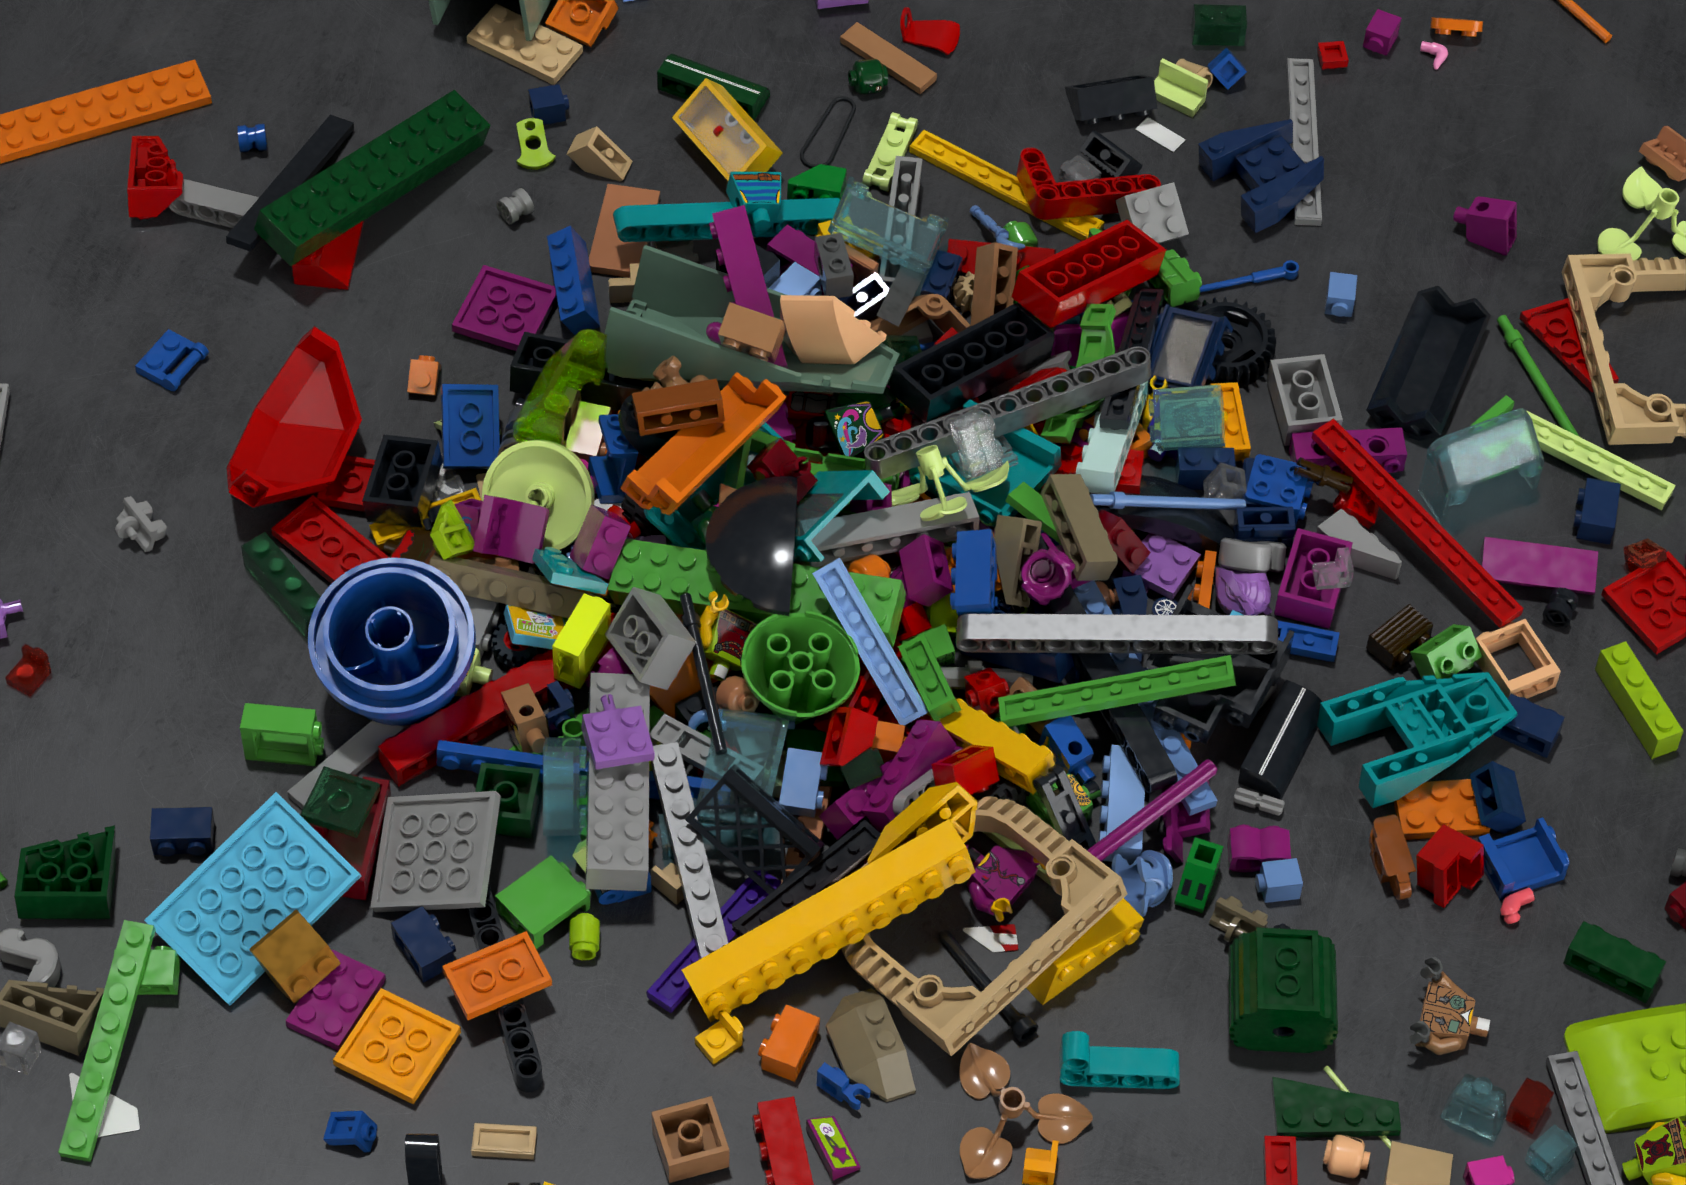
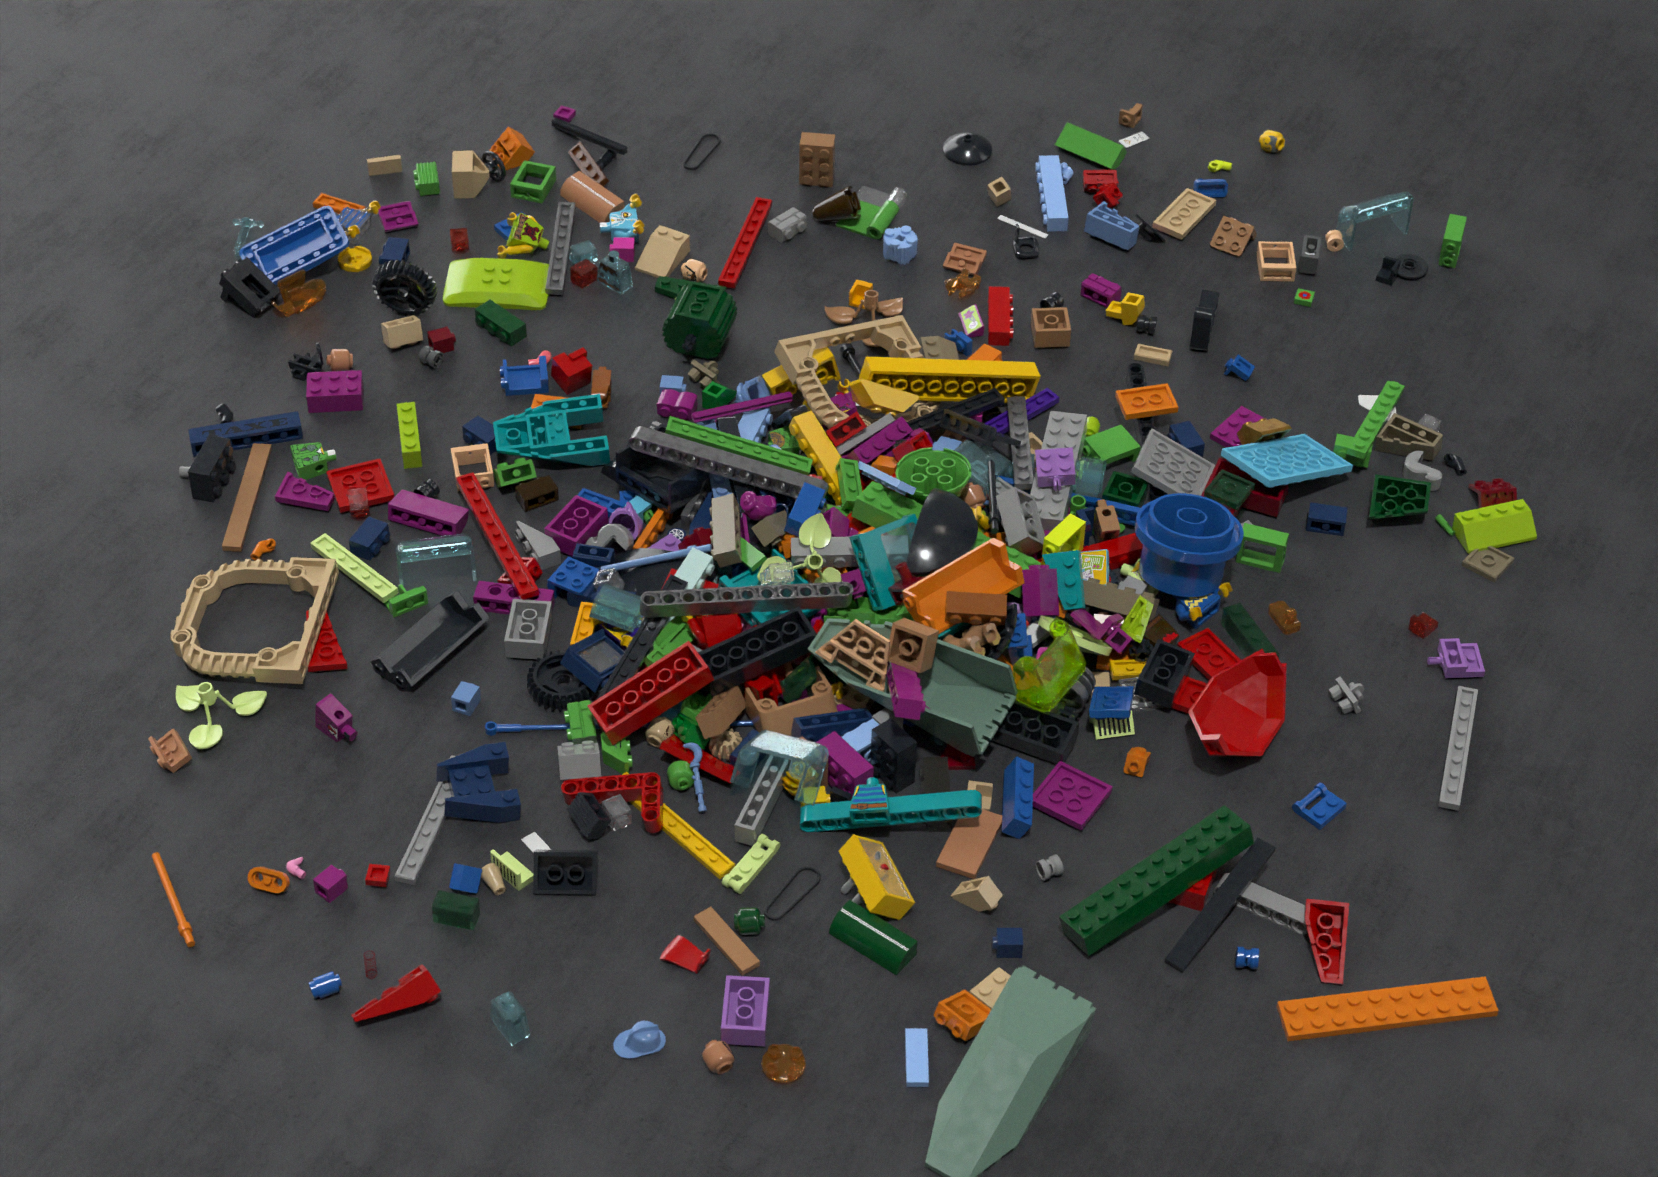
camera: 165 degrees left, 10 degrees down
(238, 647) = (1284, 617): none -> clear orange piece
(397, 1046) = (1208, 400): light orange plate -> none
(532, 158) = (1027, 924): lime piece -> none
(818, 182) = (815, 841): green slope -> none
(833, 265) = (832, 727): dark grey brick -> none
(900, 295) = (792, 708): flat silver sticker -> none
(1116, 1066) = (801, 324): teal beam -> none
(1323, 475) = (544, 566): dark brown pin -> none
(1335, 573) = (568, 505): clear panel -> none
(1445, 1014) = (611, 313): torso -> none
(1497, 797) = (524, 396): dark blue brick -> none
(1515, 341) = (359, 652): bright green bar -> none

